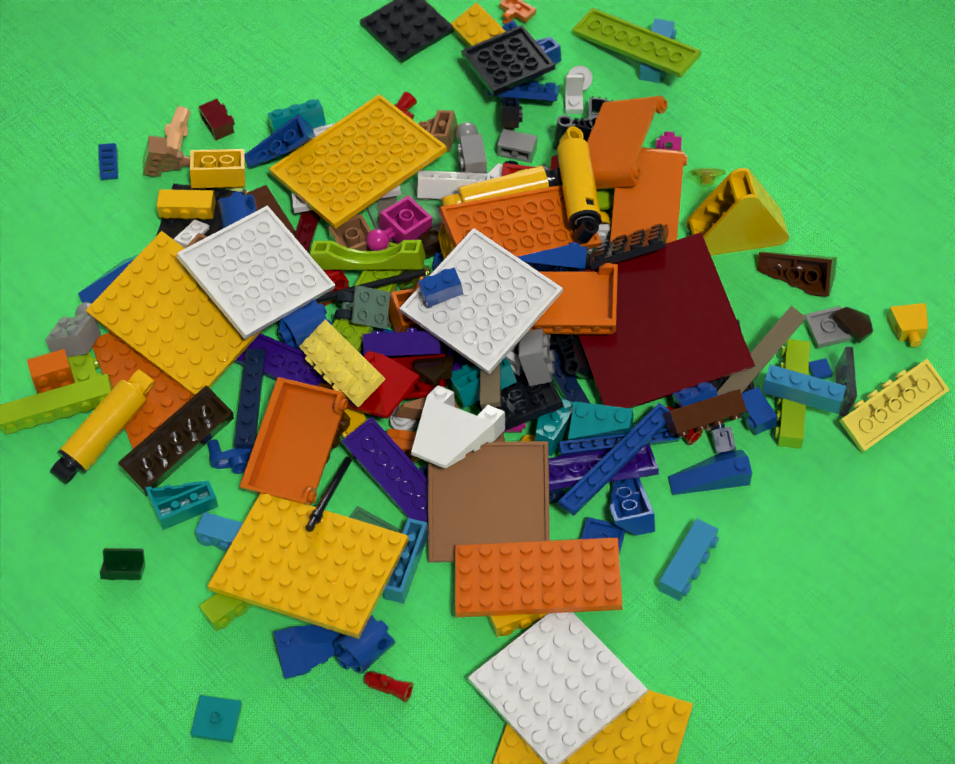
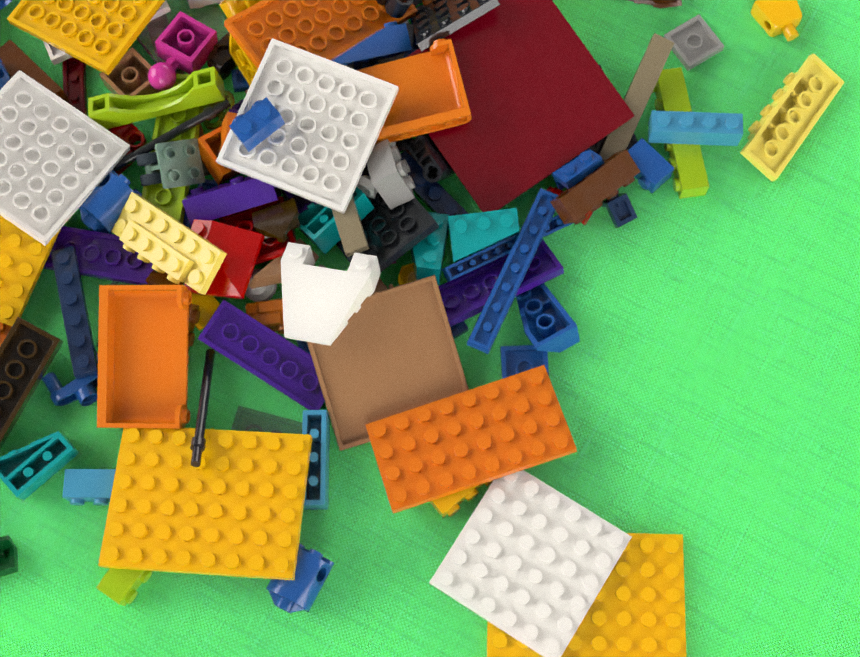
camera: 15 degrees left, 15 degrees up
(304, 648) = (231, 602): blue wedge -> none
(389, 685) = (338, 614): red piece -> none
(688, 559) = (626, 365): dark azure brick -> none
(718, 472) = (622, 250): blue wedge -> none
(820, 369) = (699, 95): blue tile -> none
(846, 376) = (733, 98): tile -> none
(854, 323) = (721, 31): dark brown slope -> none

